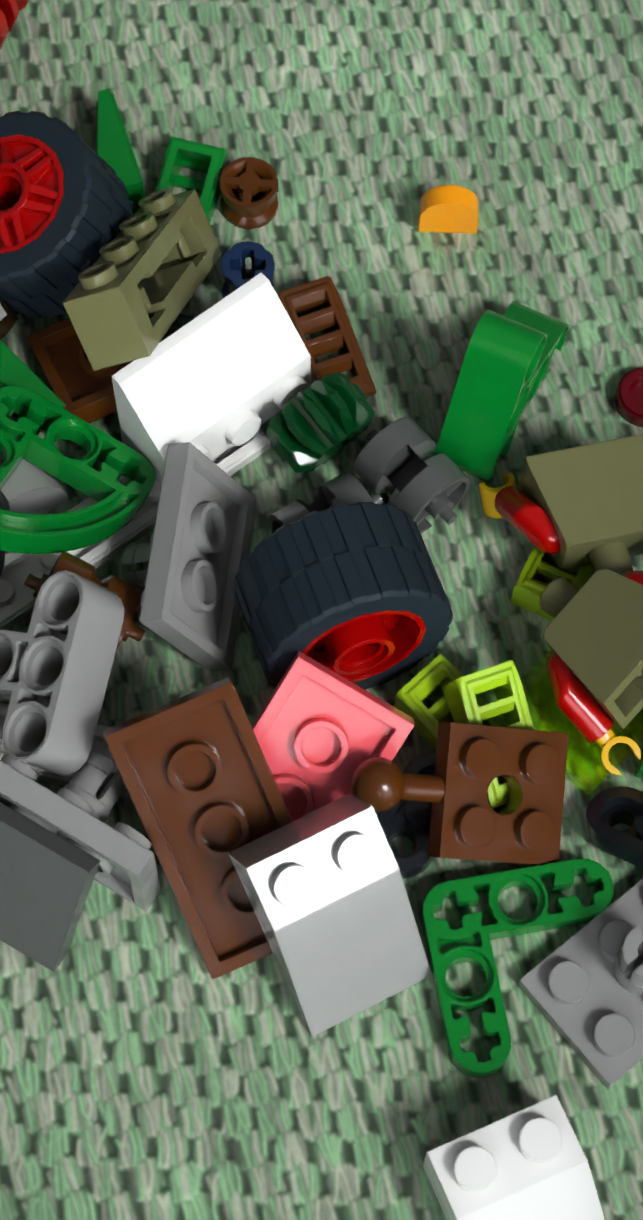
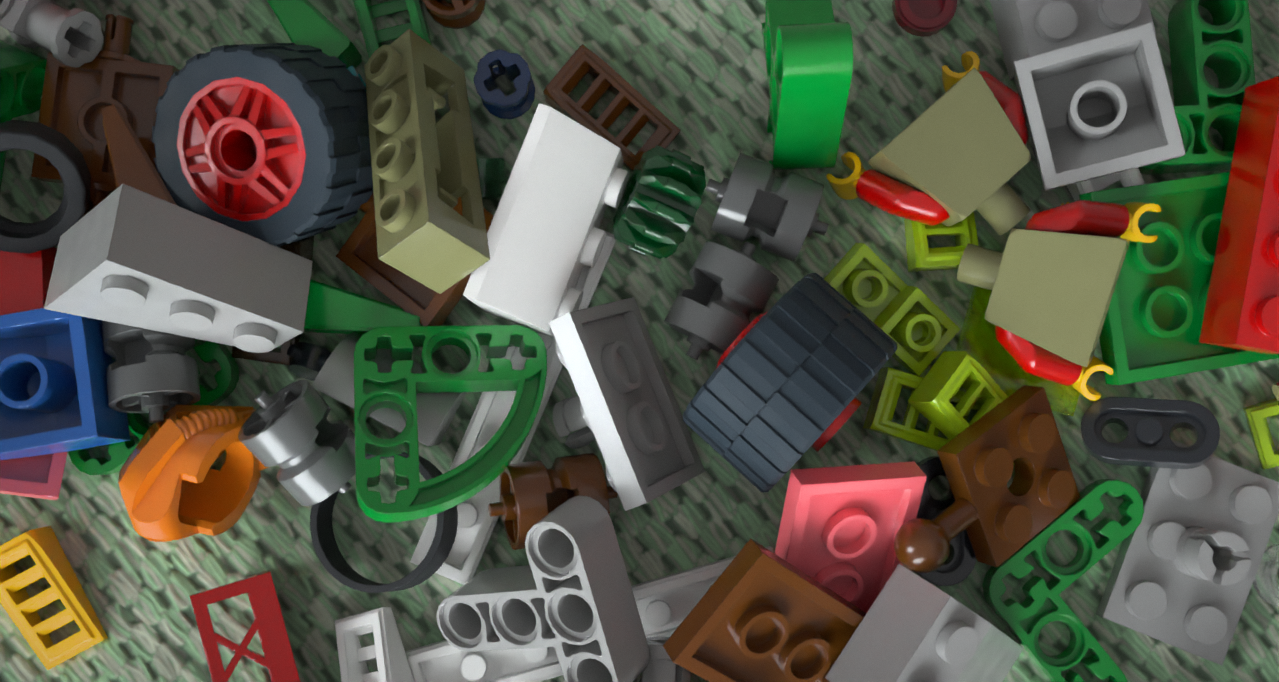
camera: 30 degrees left, 20 degrees up
(480, 628) = (894, 307): none -> lime slope

